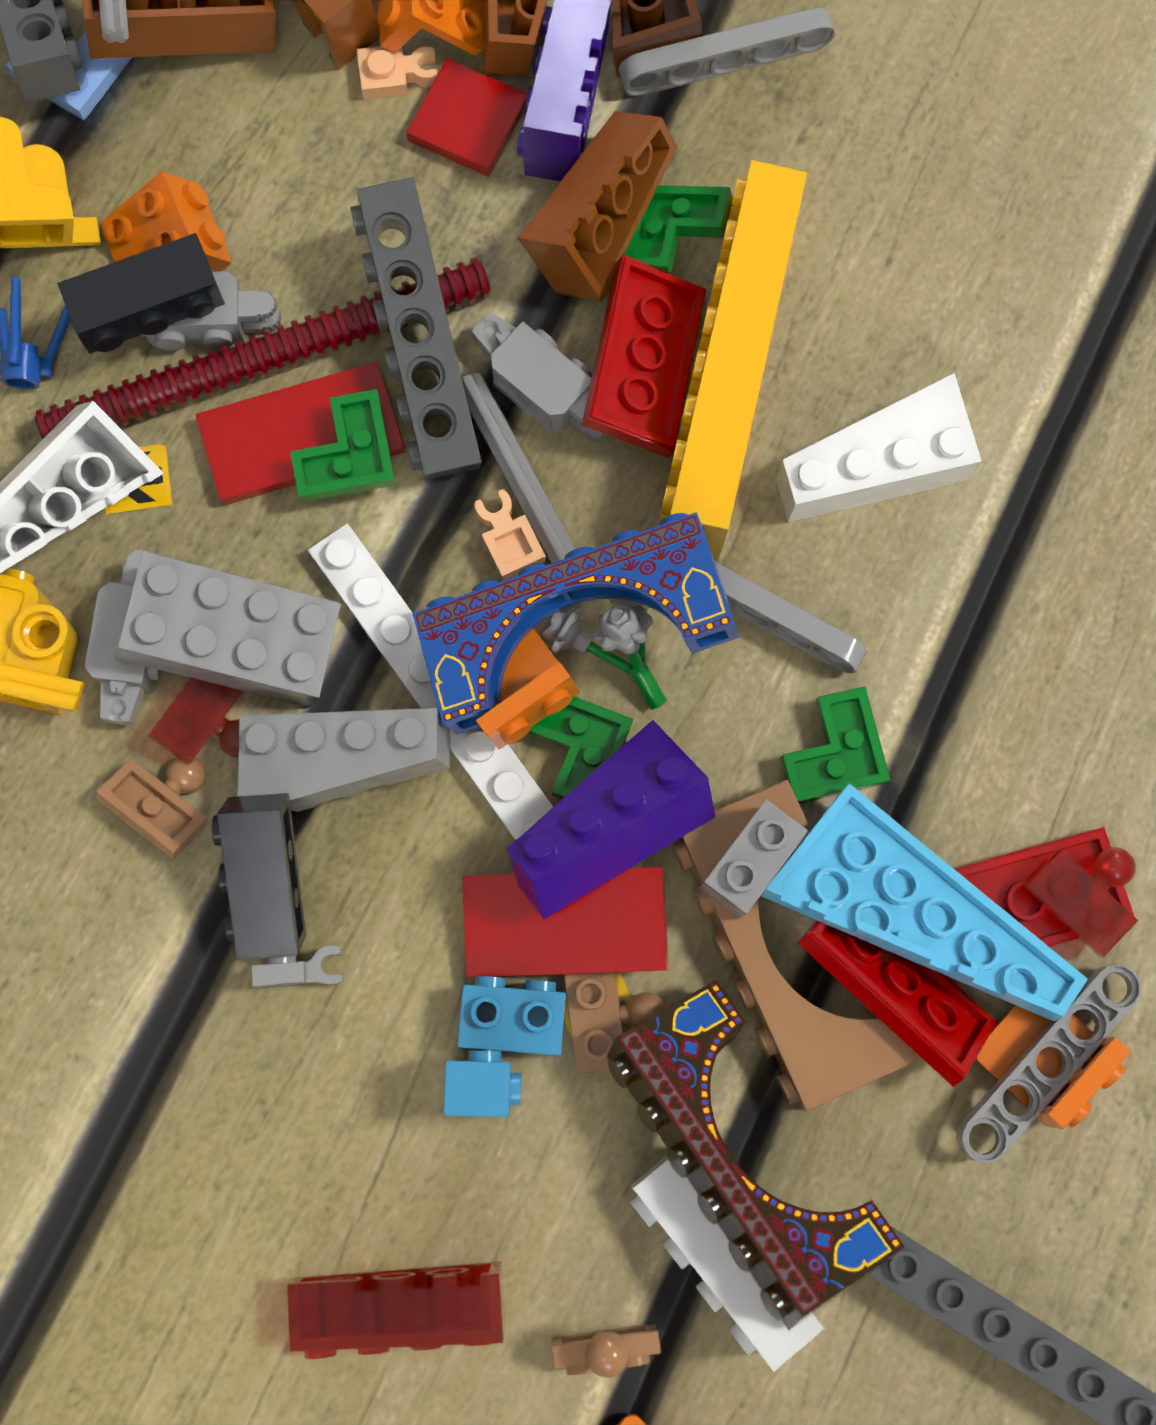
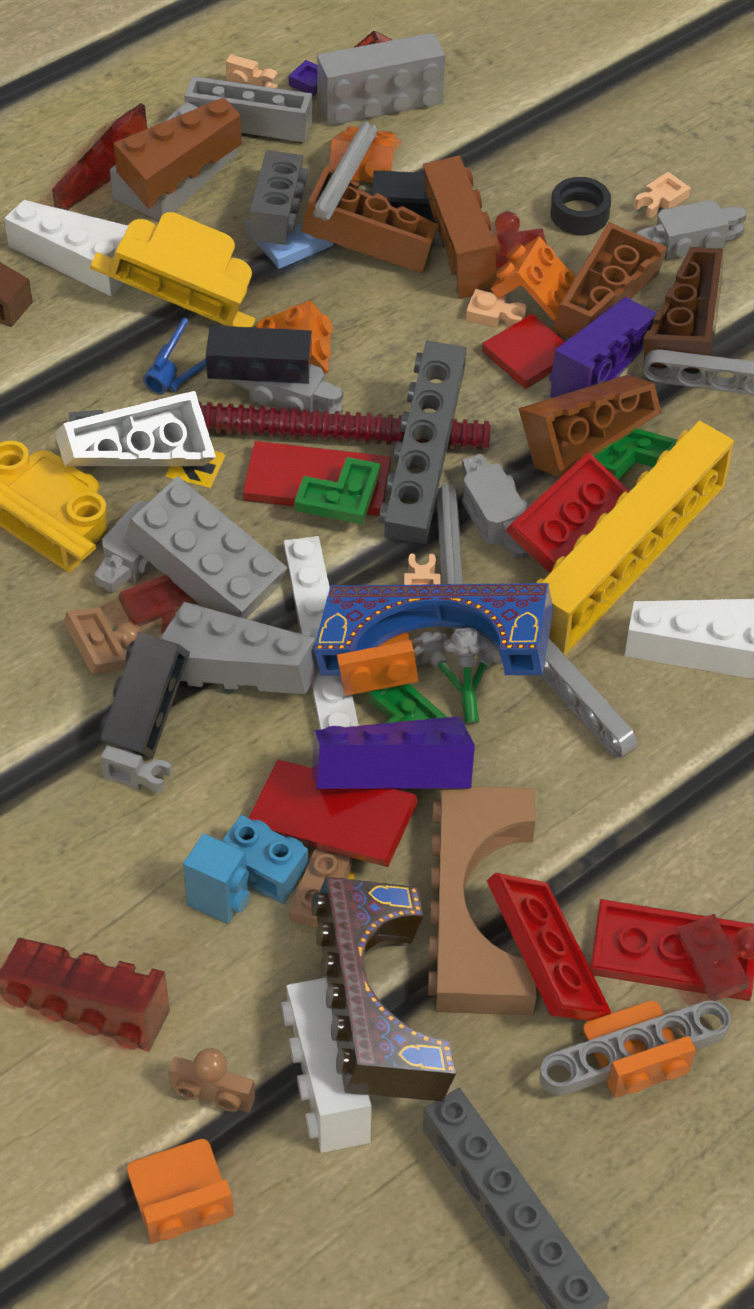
camera: 30 degrees right, 25 degrees down
(753, 859) = (481, 813): light grey brick -> none
(851, 750) = (587, 806): green plate -> none
(896, 893) = (577, 887): medium azure wing -> none

